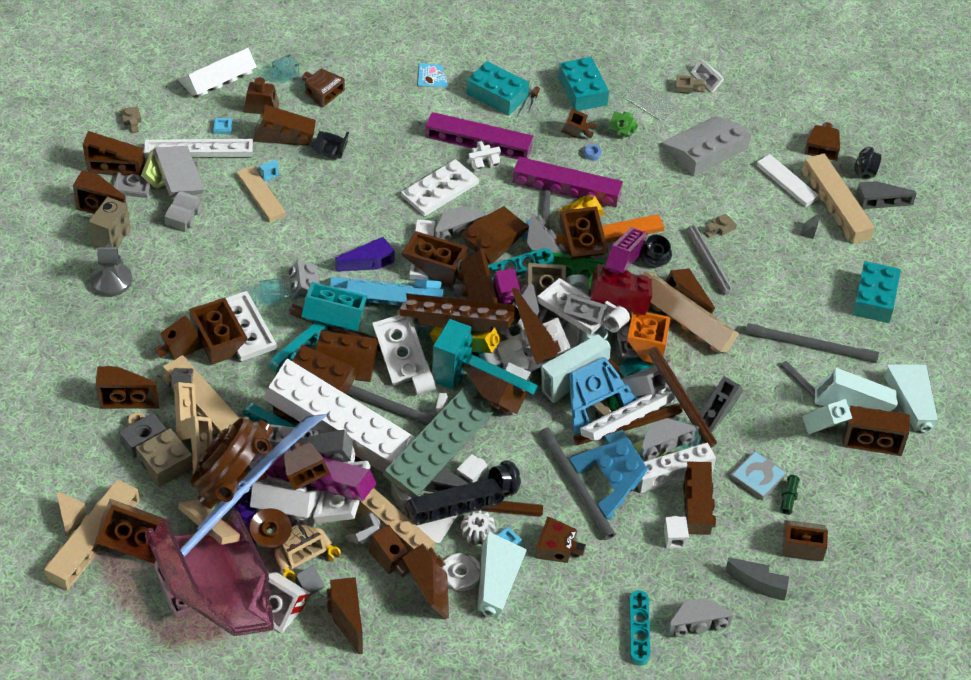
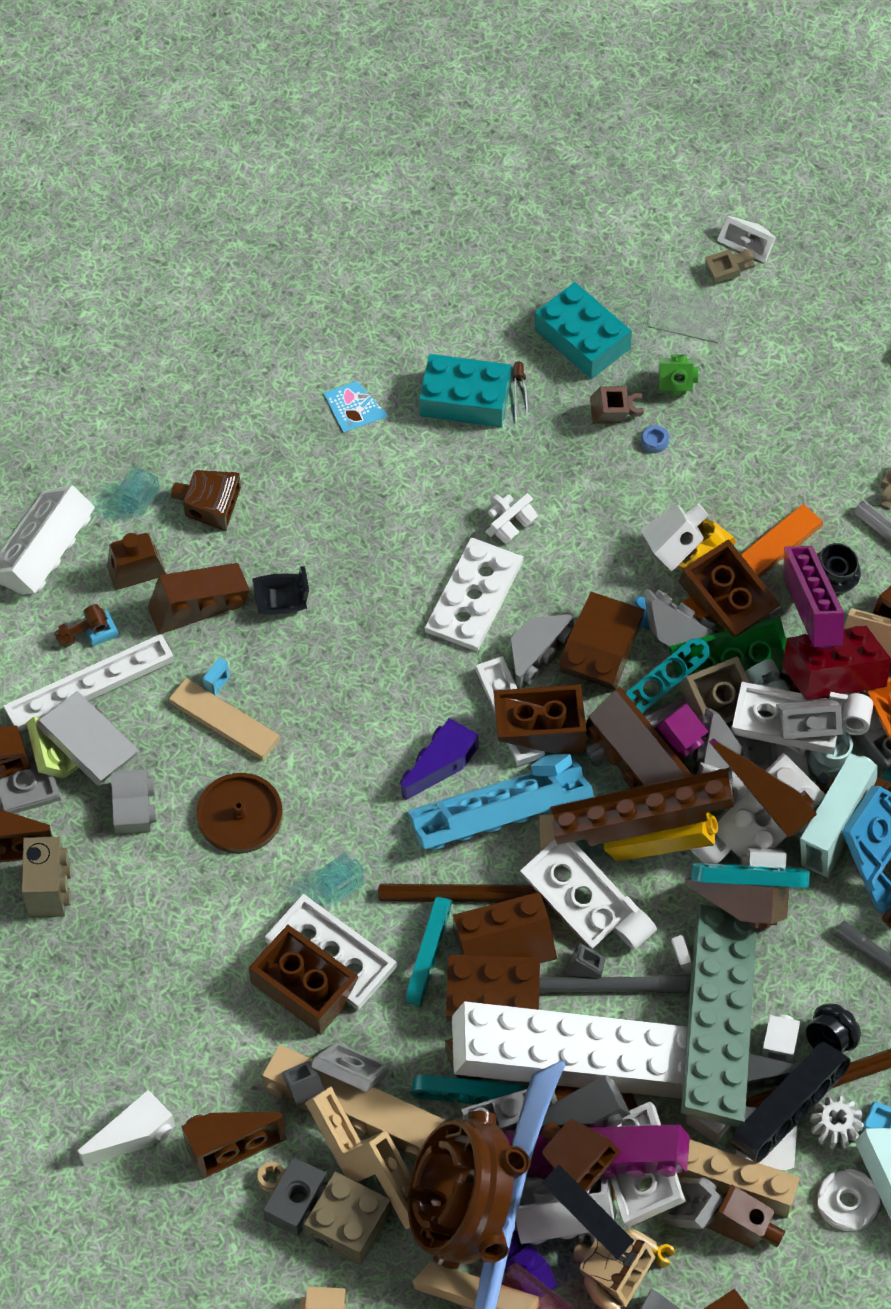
camera: 20 degrees left, 10 degrees up
(73, 366) = (130, 1131): none -> white slope
(112, 275) = (91, 957): dark grey piece -> none
(179, 339) = (264, 1013): reddish brown torso -> none
(215, 382) = (350, 1066): none -> light grey tile
(220, 118) = (94, 619): none -> reddish brown bar
(239, 241) = (239, 813): none -> reddish brown piece
(272, 519) = (581, 1254): reddish brown dish -> none
(292, 497) = (587, 1211): none -> black sticker
(301, 276) = (371, 837): light grey bracket -> none
(334, 306) = (449, 866): teal brick -> none
(384, 388) = (585, 963): none -> dark grey slope
(430, 576) = (821, 1231): reddish brown slope -> none
(450, 353) = (662, 871): teal brick -> none
(468, 133) = (475, 484): magenta brick -> none
(546, 208) = (642, 562): dark grey bar -> none
(564, 199) = (675, 534): none -> white torso
(567, 181) = (636, 507): magenta brick -> none
(708, 144) = (806, 354): light grey slope -> none

